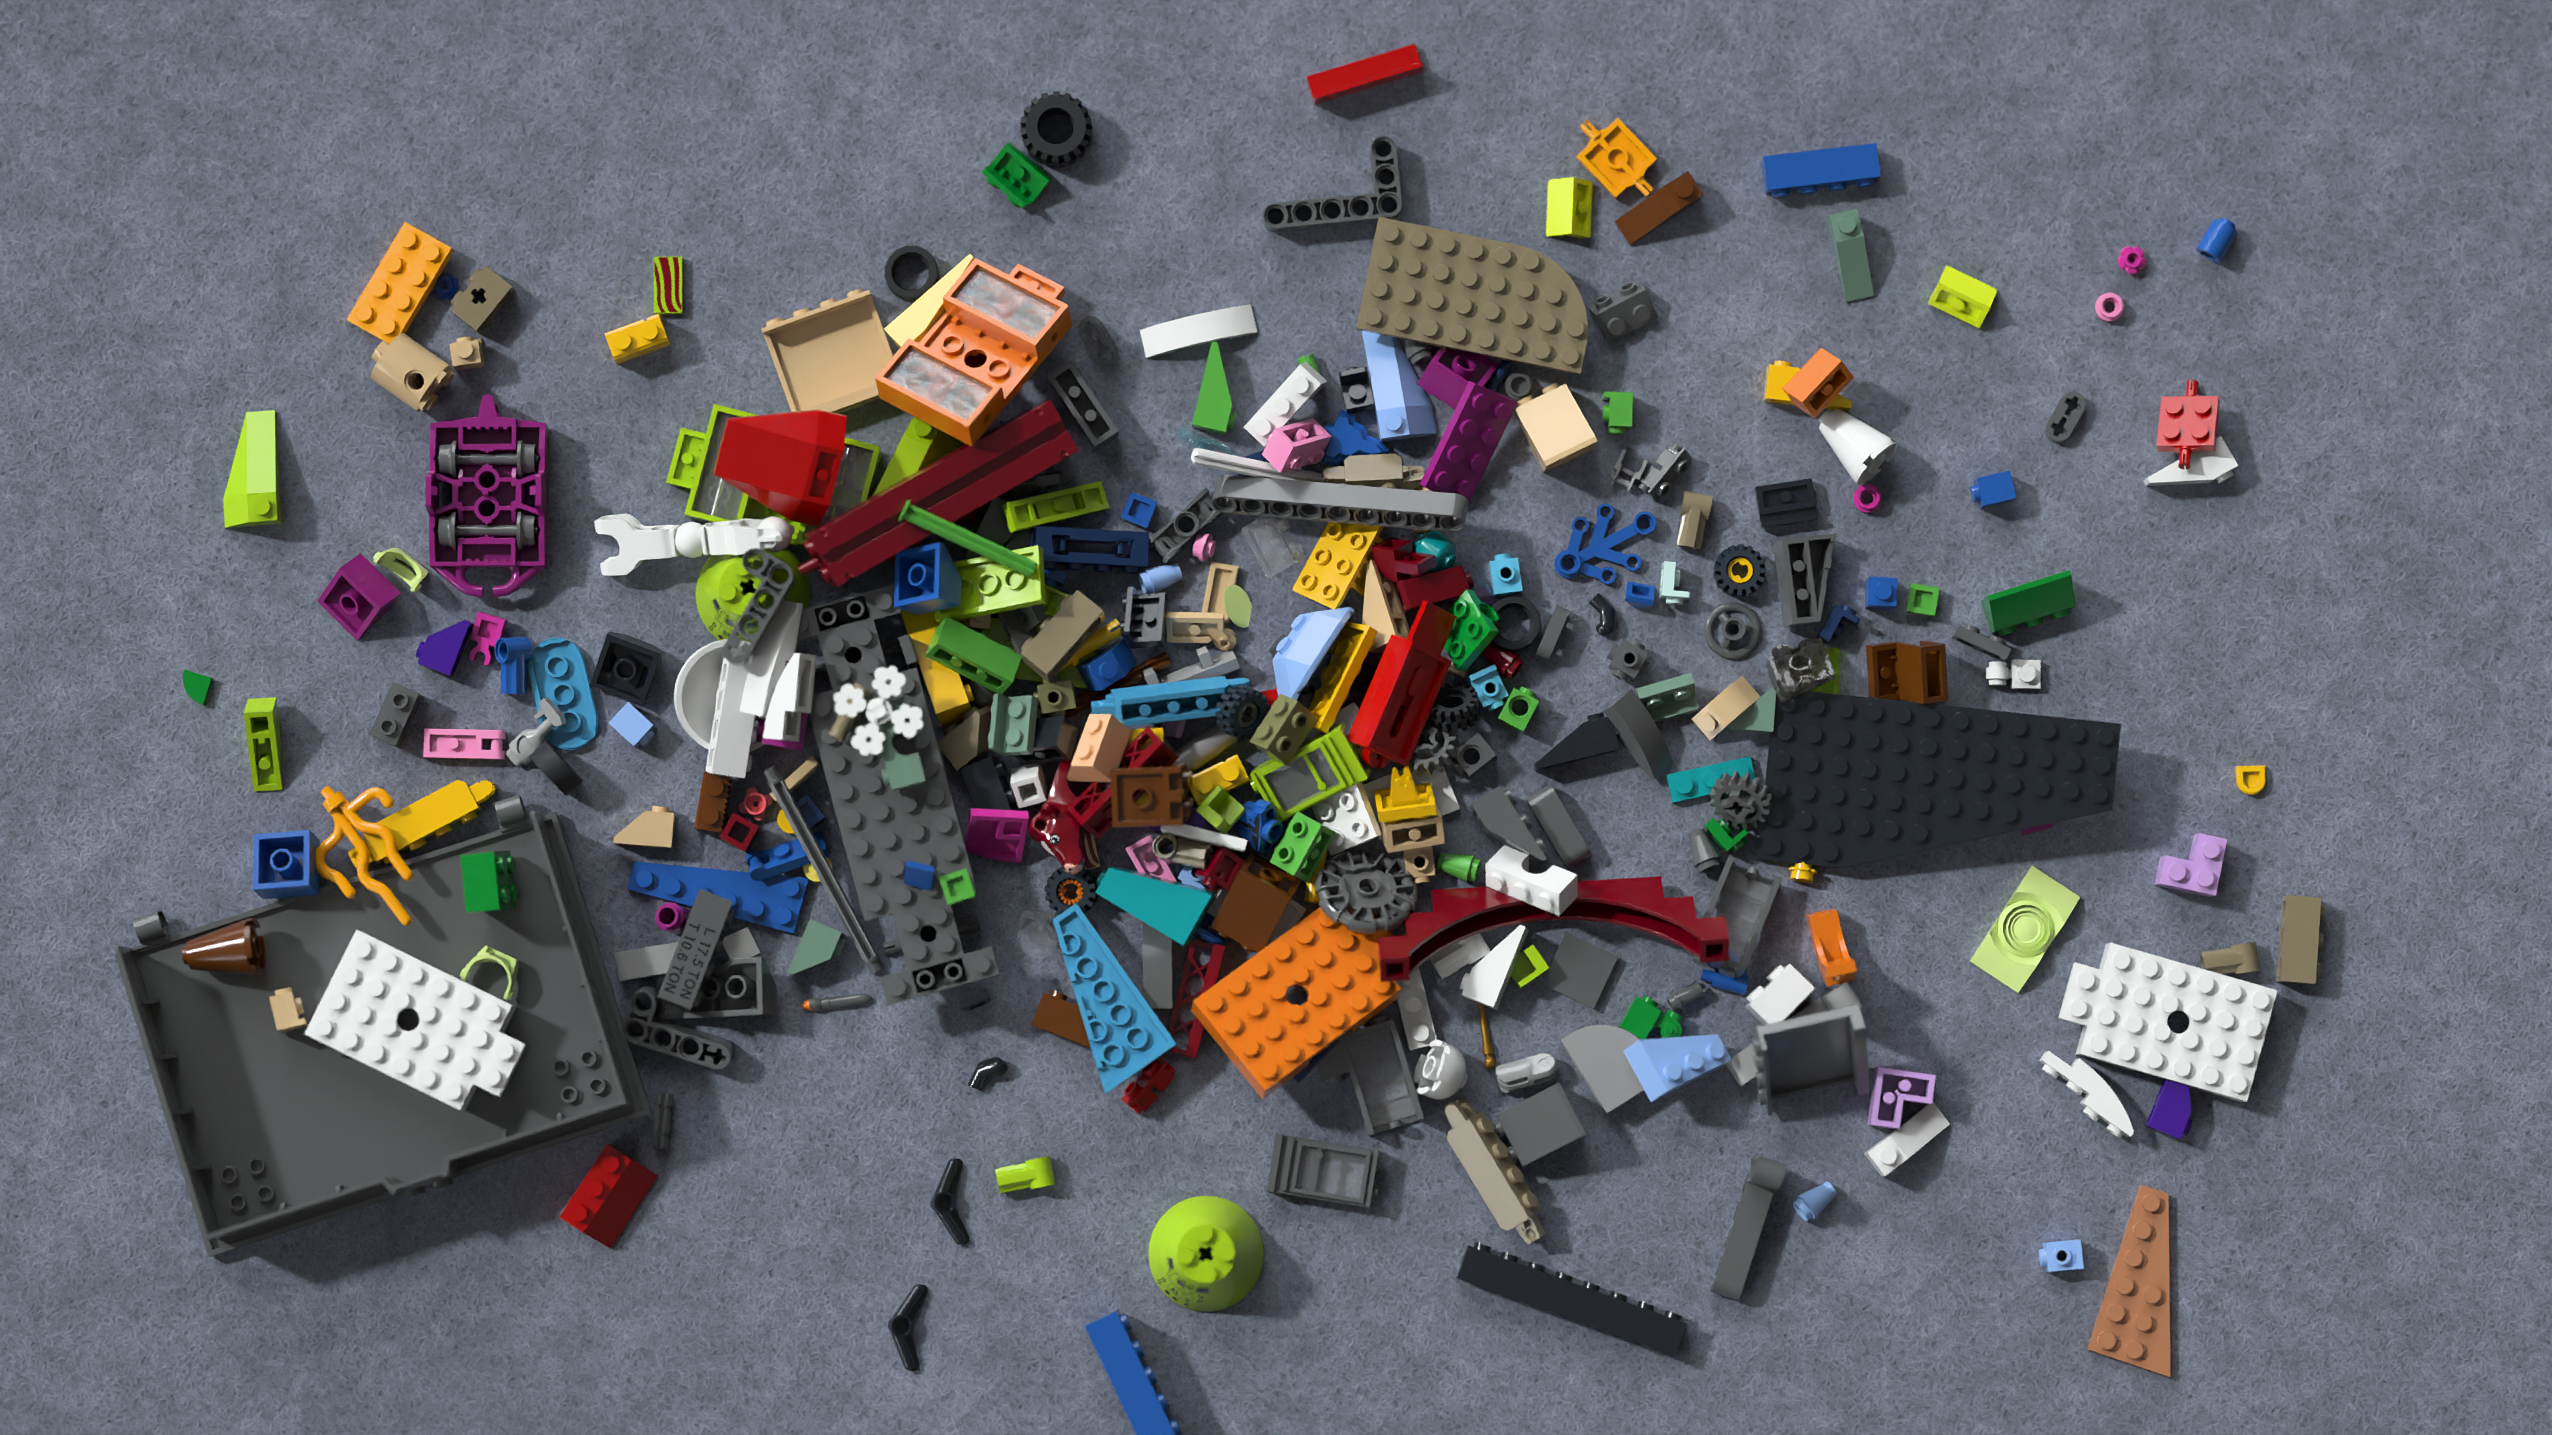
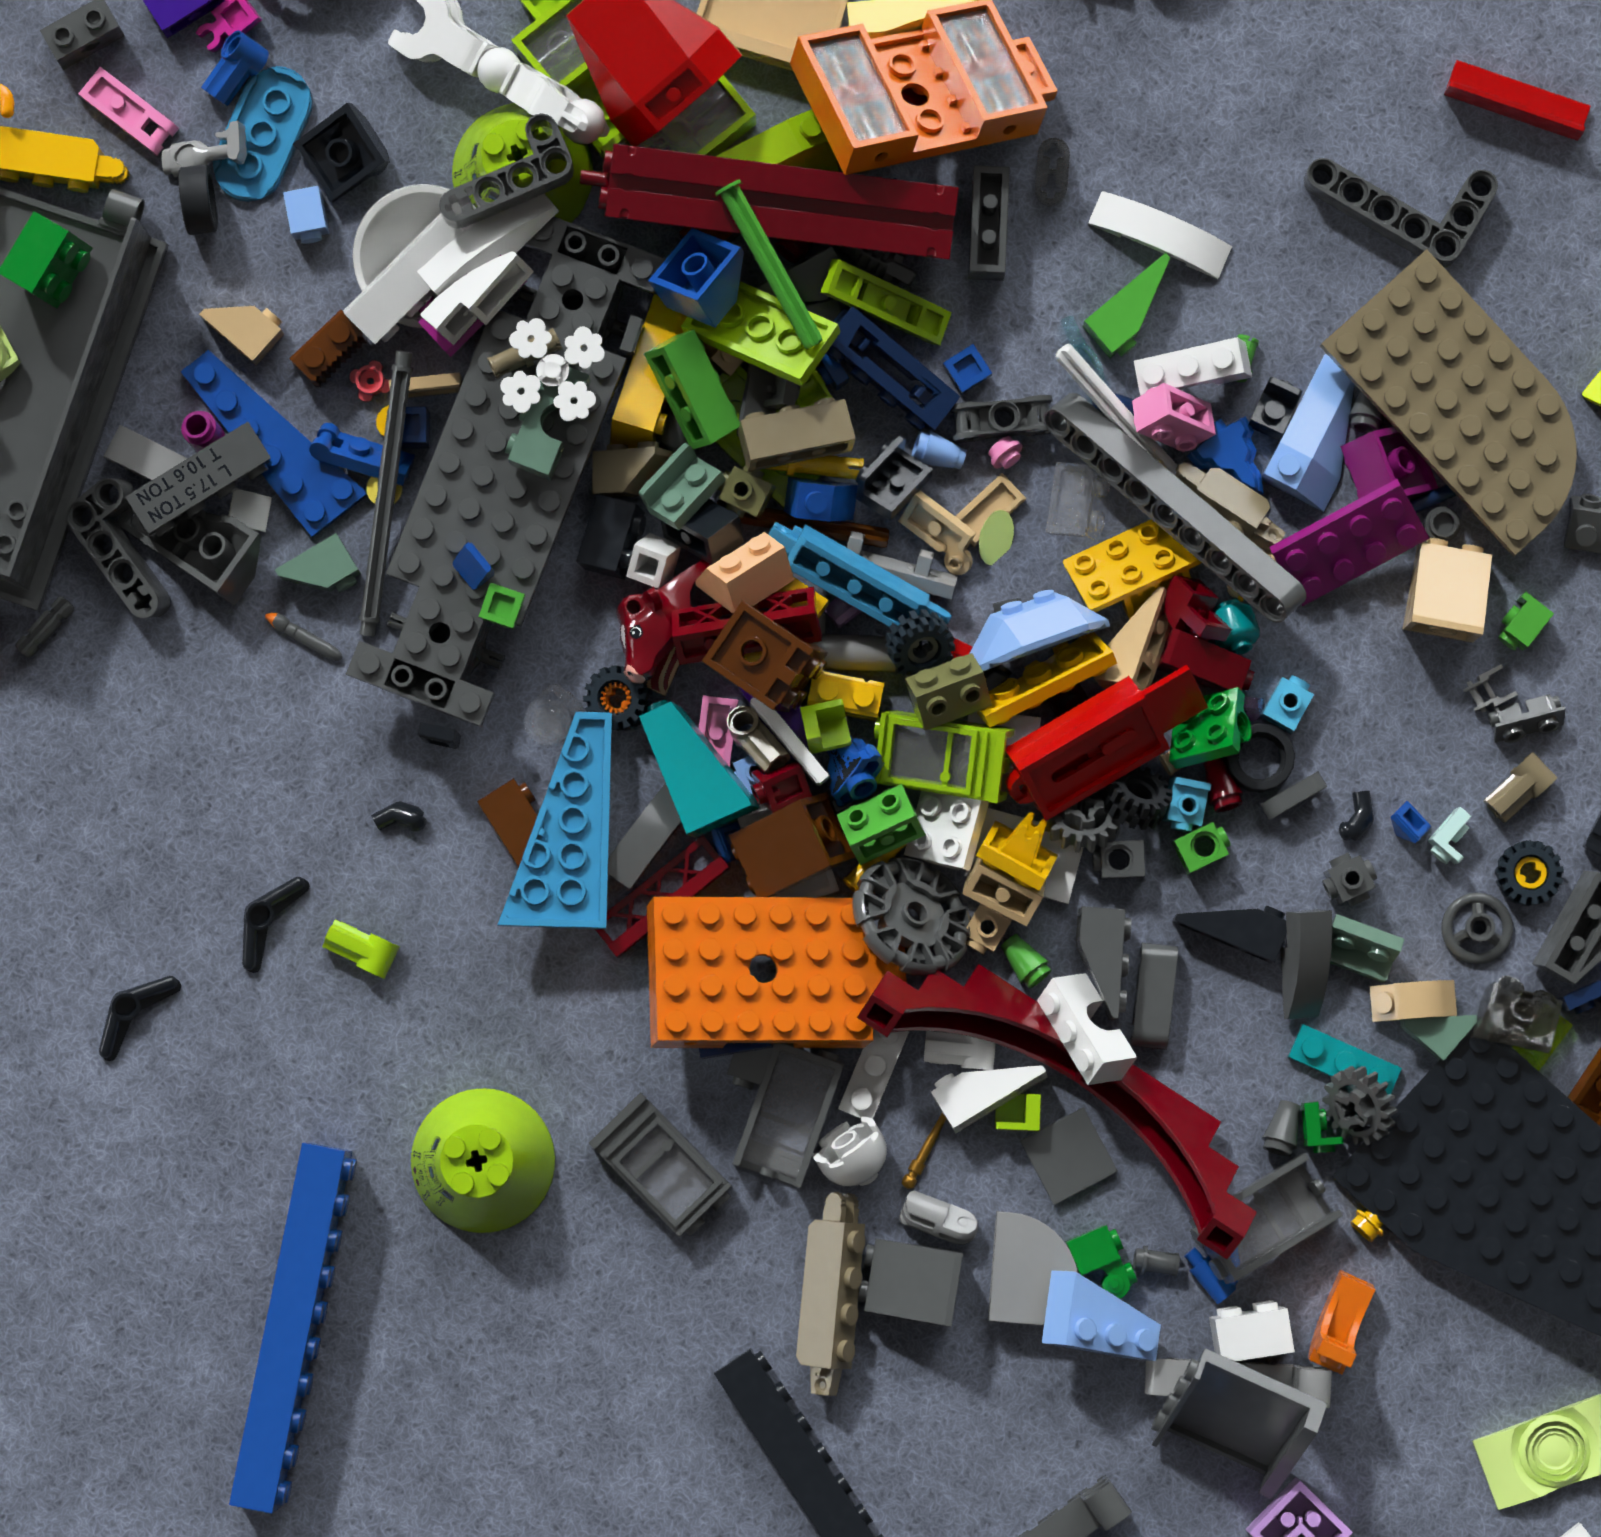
camera: 45 degrees right, 0 degrees up
(740, 833) = (332, 397): dark red brick -> none
(997, 834) = (585, 585): dark pink plate -> none
(1139, 1093) = (535, 950): red hinge -> none
(1600, 546) = (1405, 746): blue plant -> none

